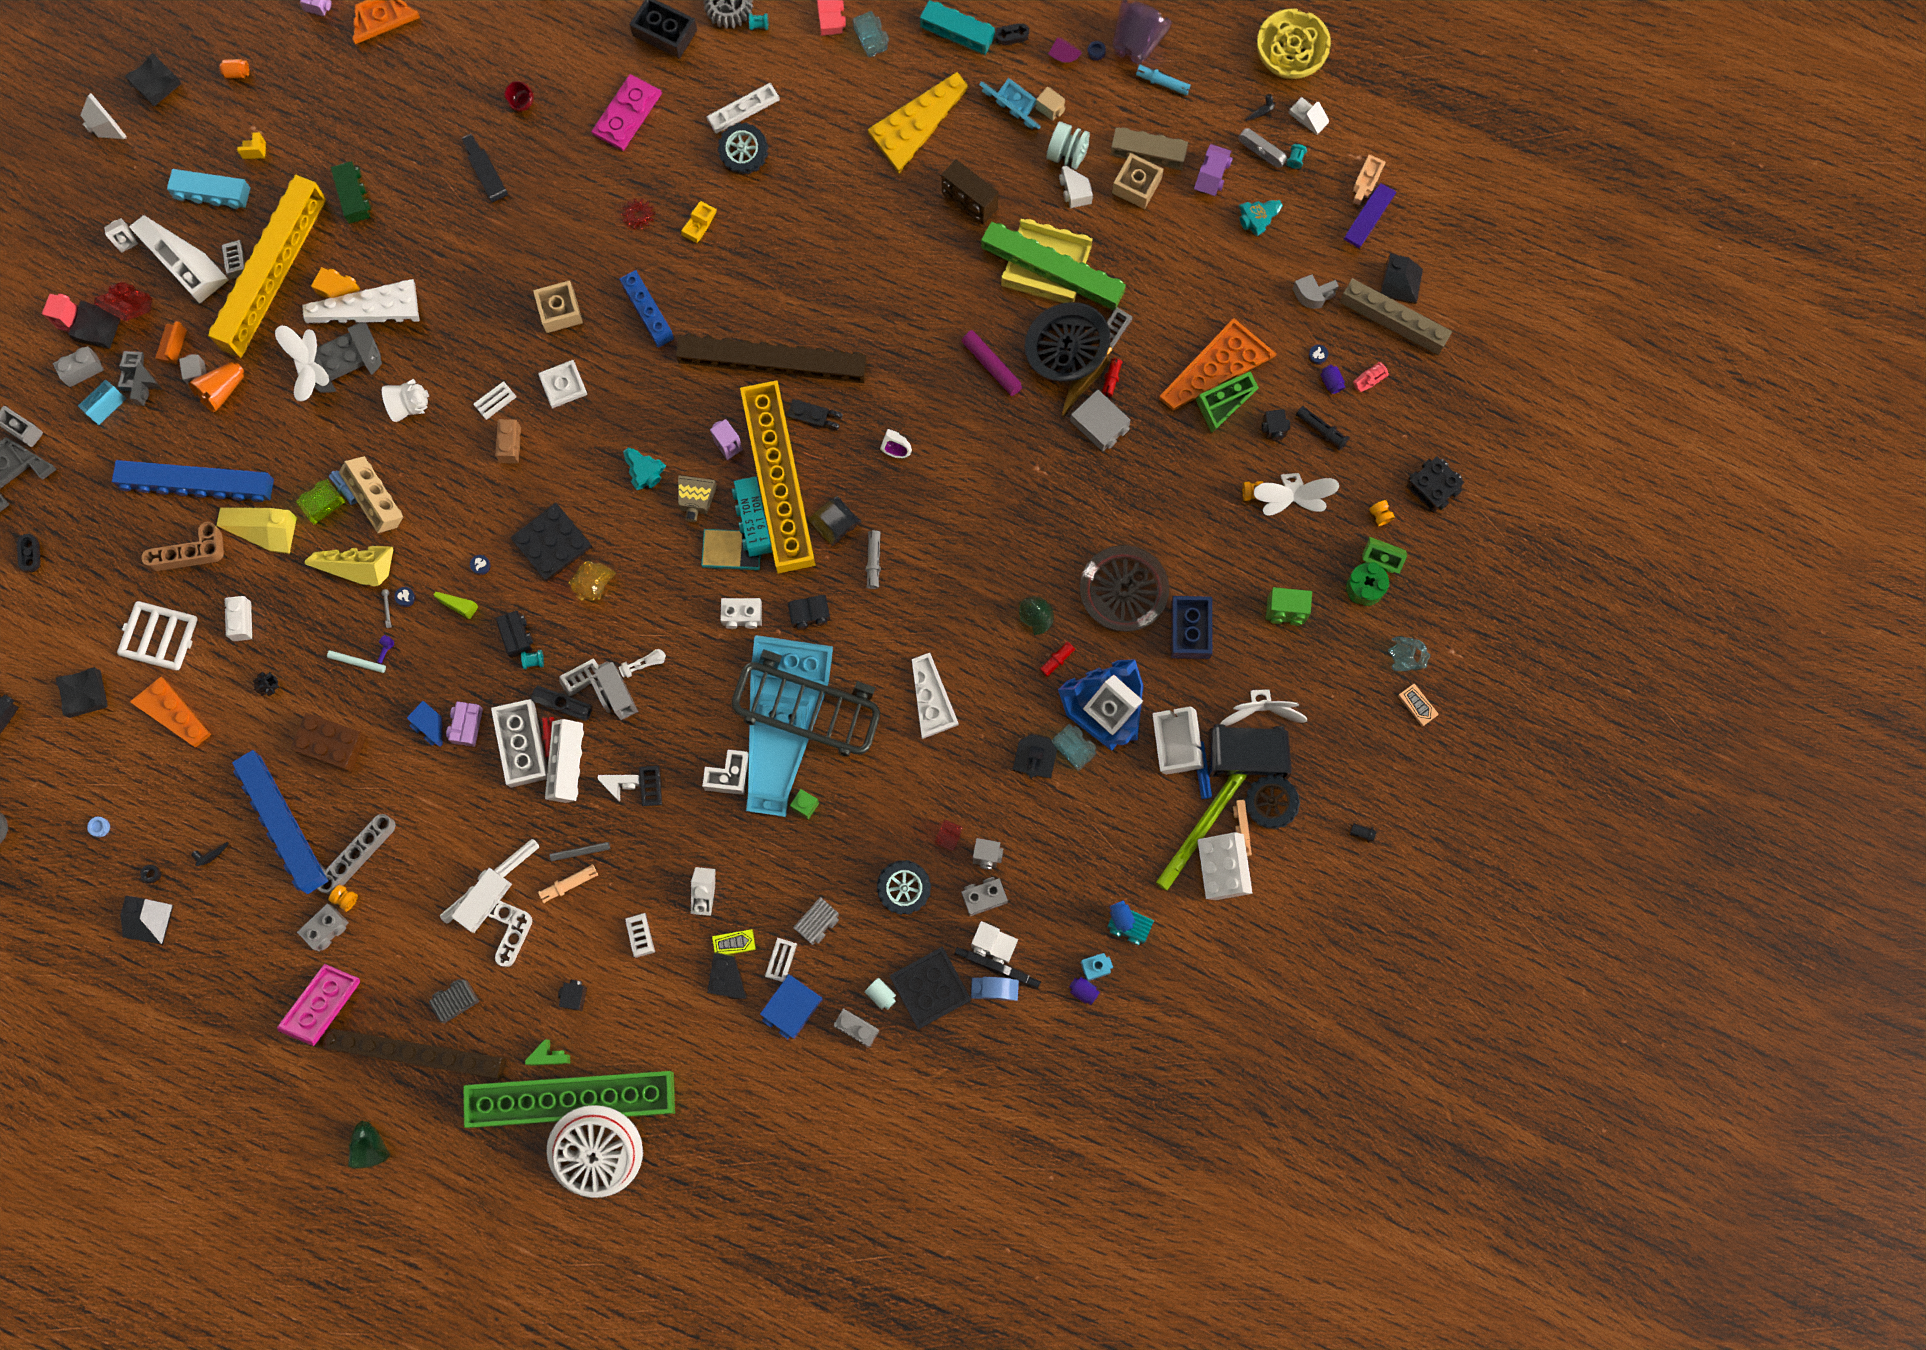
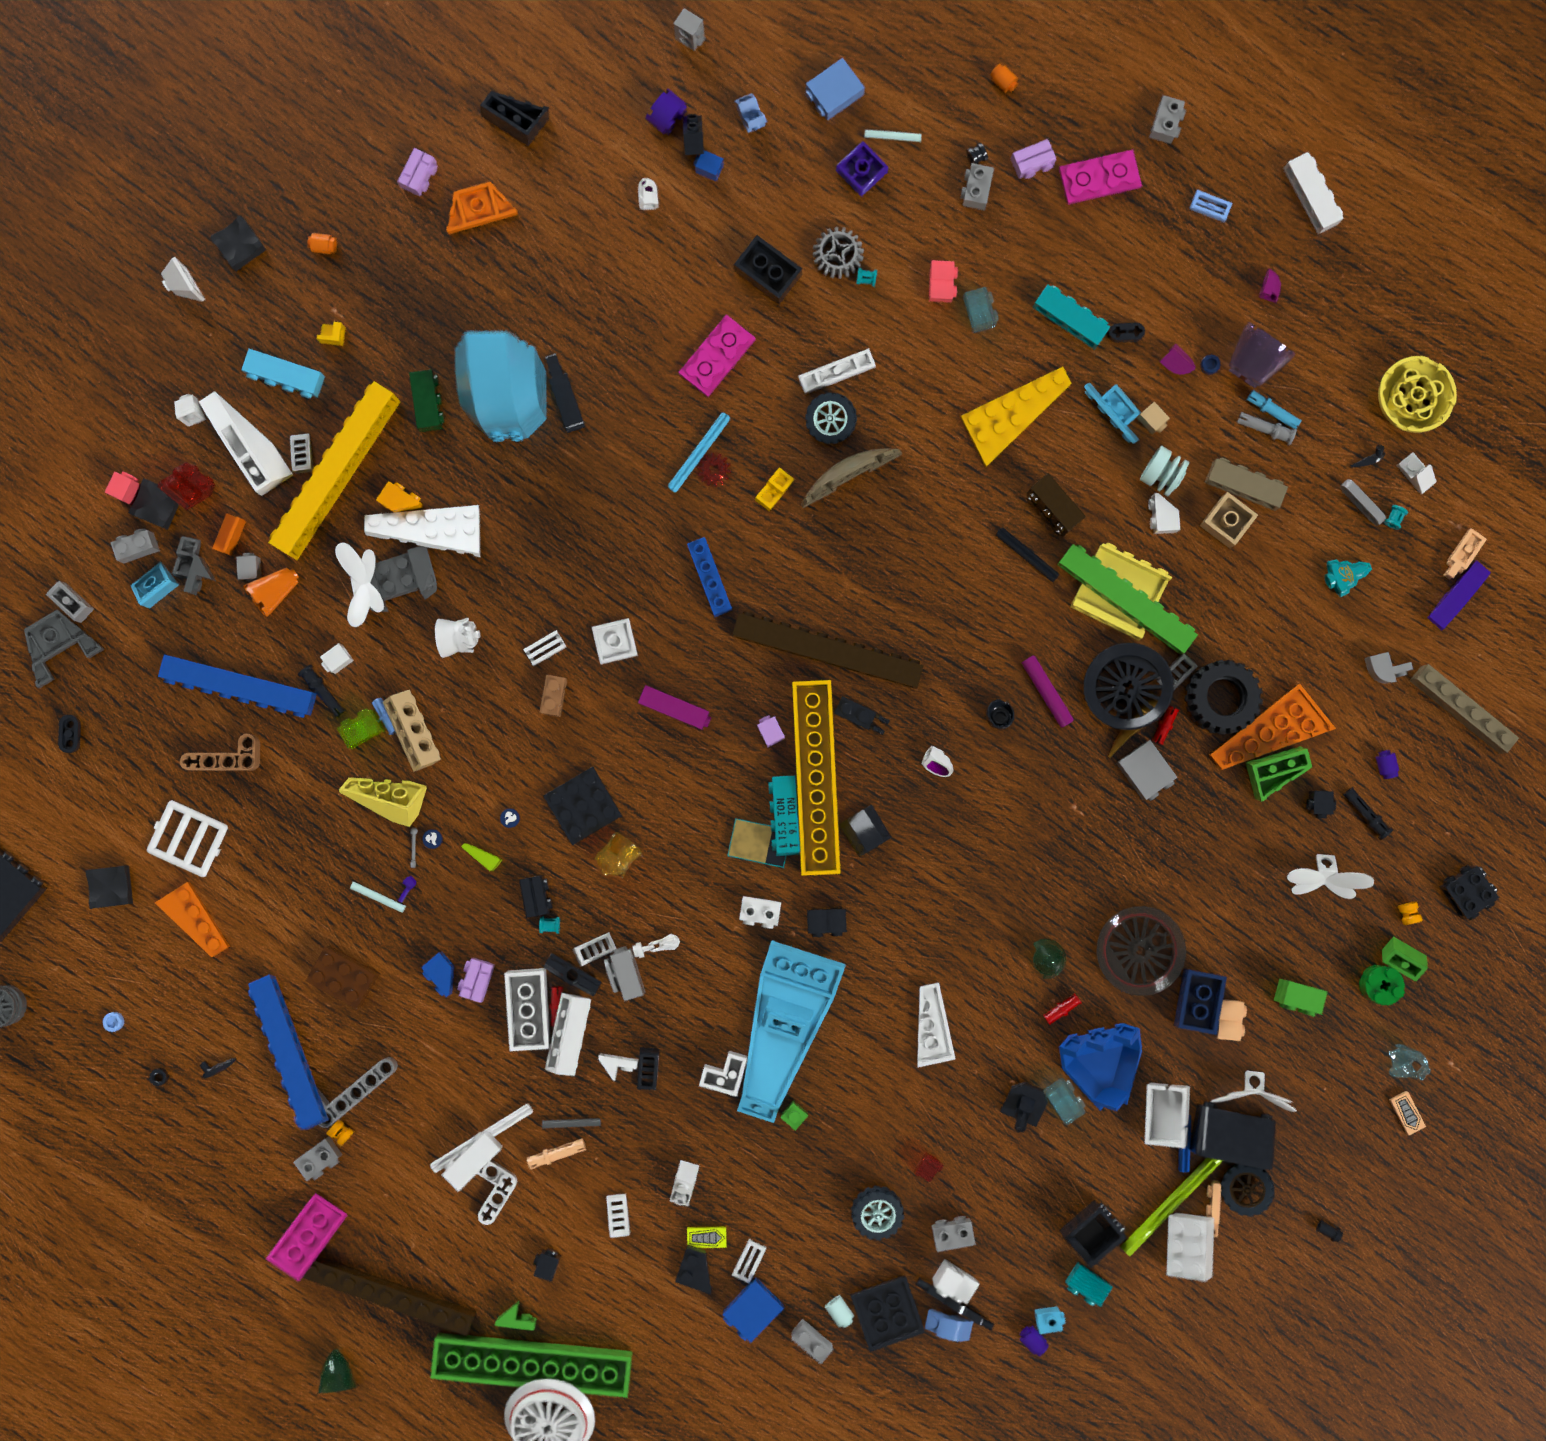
camera: 10 degrees right, 10 degrees up
(145, 919) = (150, 1121): black slope -> none
(238, 618) = (268, 836): white brick -> none
(261, 526) = (301, 745): light yellow wedge -> none
(265, 684) = (288, 907): black gear -> none
(272, 467) = (316, 683): none -> black pin
(289, 440) = (336, 659): none -> white brick
(416, 150) = (501, 385): none -> medium azure windscreen
(453, 1001) = (433, 1250): dark grey brick -> none
(519, 96) = (609, 322): dark red hair -> none
(558, 306) = (621, 561): tan brick -> none
(621, 200) = (698, 452): none -> medium azure axle
(629, 434) = (674, 708): none -> magenta brick
(643, 469) = (683, 745): teal rock -> none
(695, 496) = (730, 783): dark tan torso -> none
(783, 178) = (848, 469): none -> dark tan brick
(816, 921) = (789, 1231): light grey brick -> none
(860, 695) = (867, 1012): pearl dark grey bar -> none
(873, 560) = (897, 877): light grey pin -> none
(948, 390) = (1000, 714): none -> black hair
(951, 243) = (1027, 554): none -> black axle
(987, 853) = (963, 1196): light grey brick -> none
(1113, 704) = (1110, 1070): white brick -> none
(1119, 875) = (1088, 1235): none -> black container
(1122, 916) = (1083, 1282): blue brick -> none
(1167, 318) = (1247, 689): none -> black tyre
(1168, 97) = (1275, 430): none -> light grey pin
(1212, 170) = (1308, 520): medium lavender brick -> none
(1225, 642) = (1231, 1019): none -> light nougat brick
(1248, 490) = (1283, 868): light orange wheel -> none
(1318, 354) = (1377, 734): dark blue tile -> none
(1371, 377) = (1426, 768): coral hinge -> none
(1401, 279) = (1476, 668): black slope -> none

